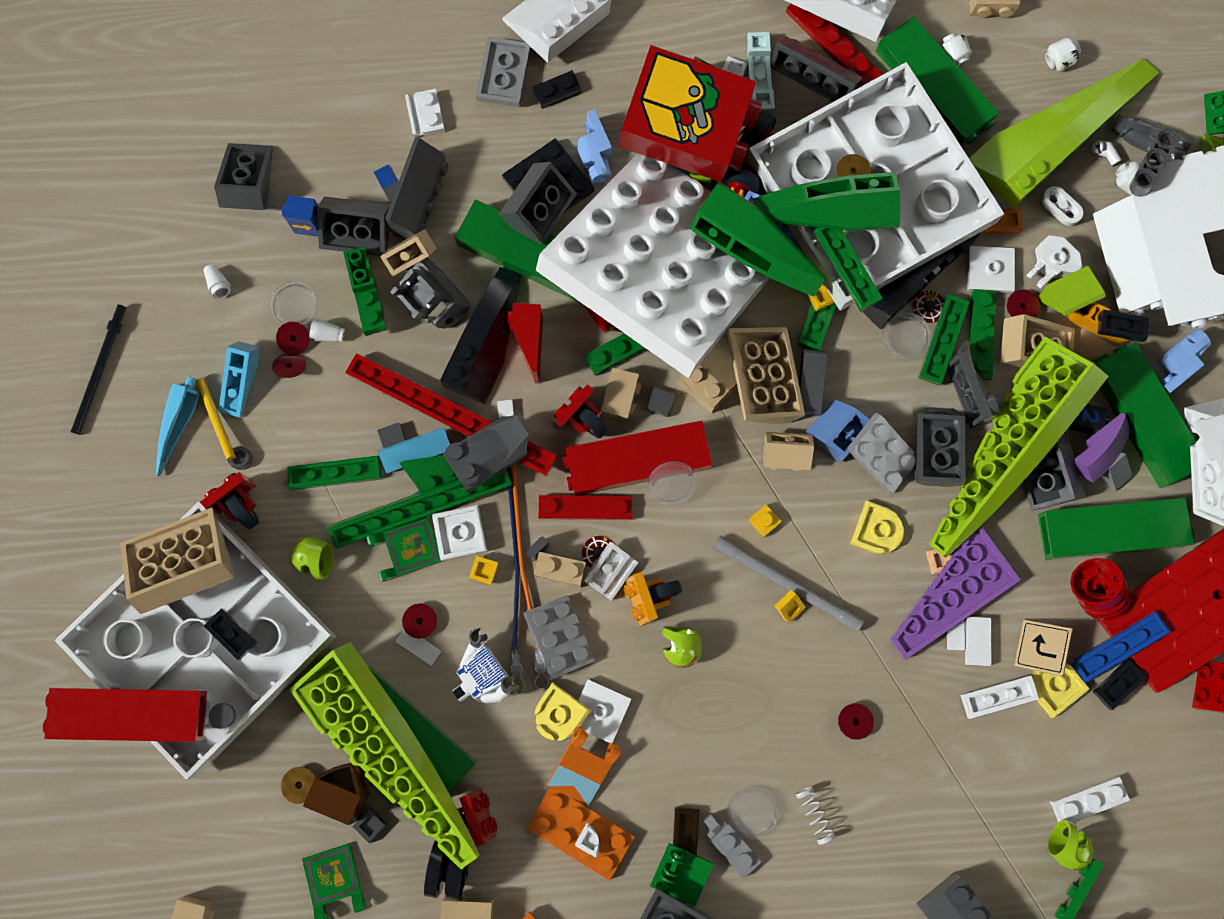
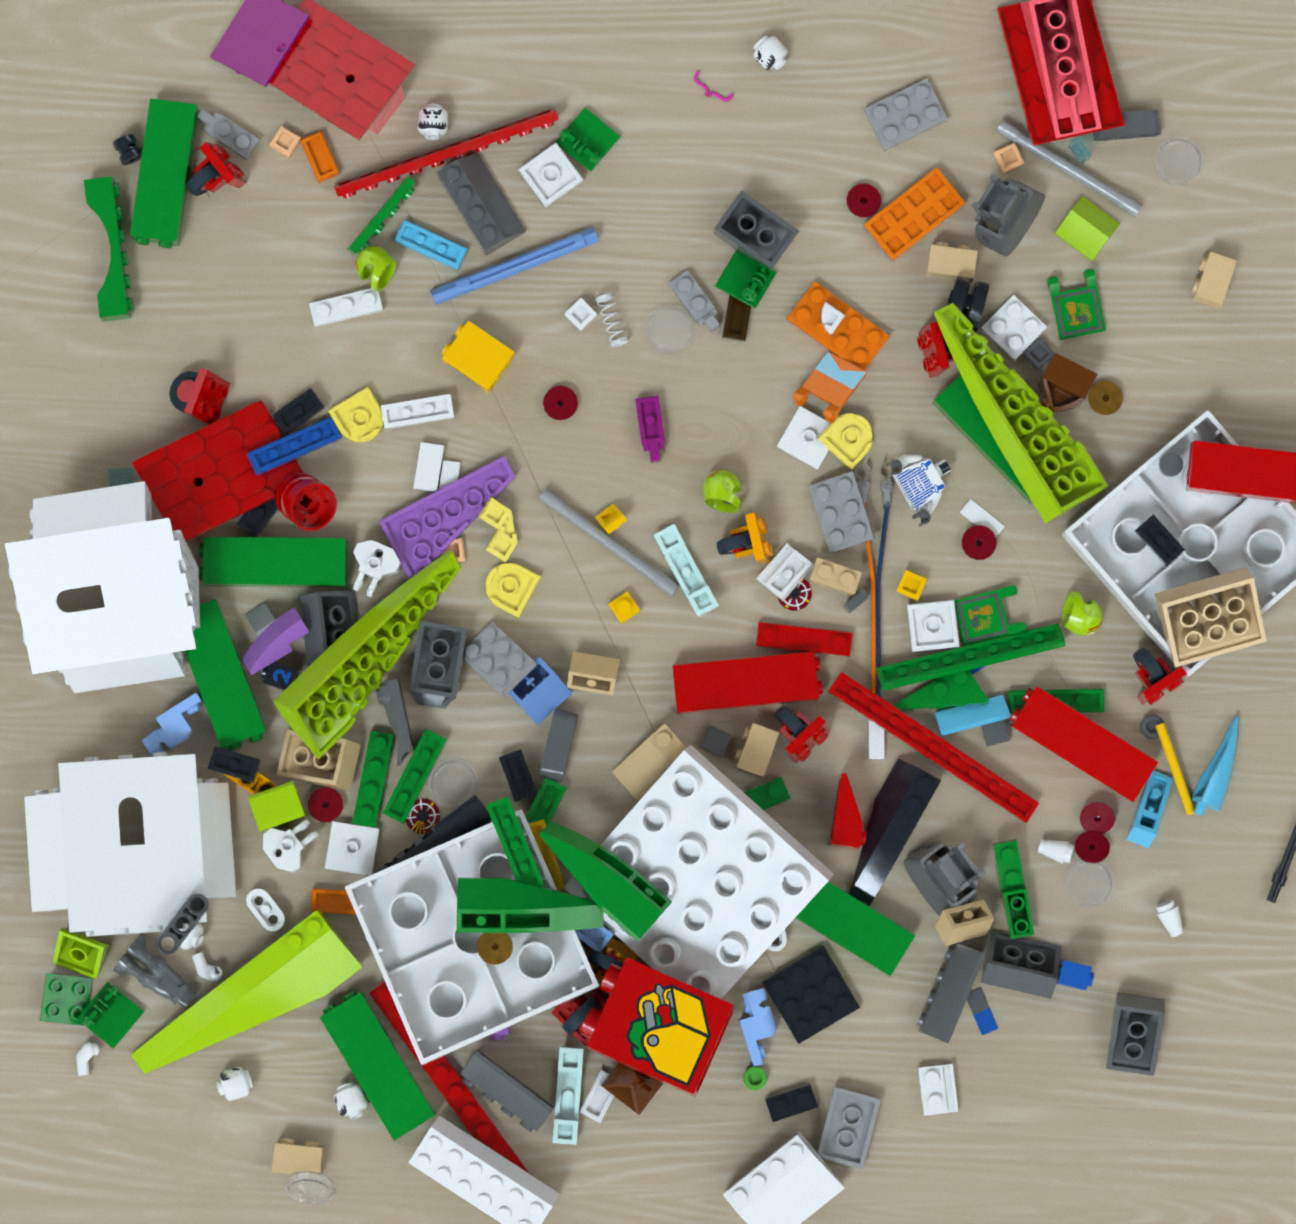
camera: 175 degrees left, 5 degrees up
(304, 432) = (1083, 743): none -> red brick
(397, 851) = (1013, 328): none -> white plate
(488, 451) = (898, 699): dark grey slope -> none
(538, 202) = (824, 961): dark grey slope -> none
(591, 103) = (754, 1077): none -> bright green tile
(672, 484) = (714, 650): clear piece -> none
(708, 562) = (685, 570): none -> light aqua slope
(761, 706) = (650, 426): none -> magenta hinge
(765, 374) = (608, 750): tan slope -> none
(846, 349) = (518, 775): none -> black plate
(848, 817) = (580, 314): none -> white plate
(900, 596) = (504, 538): none -> light yellow tile
(923, 864) = (514, 265): none -> medium blue piece
(948, 761) = (478, 356): none -> yellow panel
(1013, 878) = (431, 245): none -> medium azure tile
(1018, 535) = (373, 566): none -> white hinge
(1043, 647) = (367, 453): tan piece -> none
(1141, 569) = (256, 519): none -> black plate
(1186, 101) = (110, 1015): none -> green hinge
(1201, 64) = (83, 1057): none -> white arm

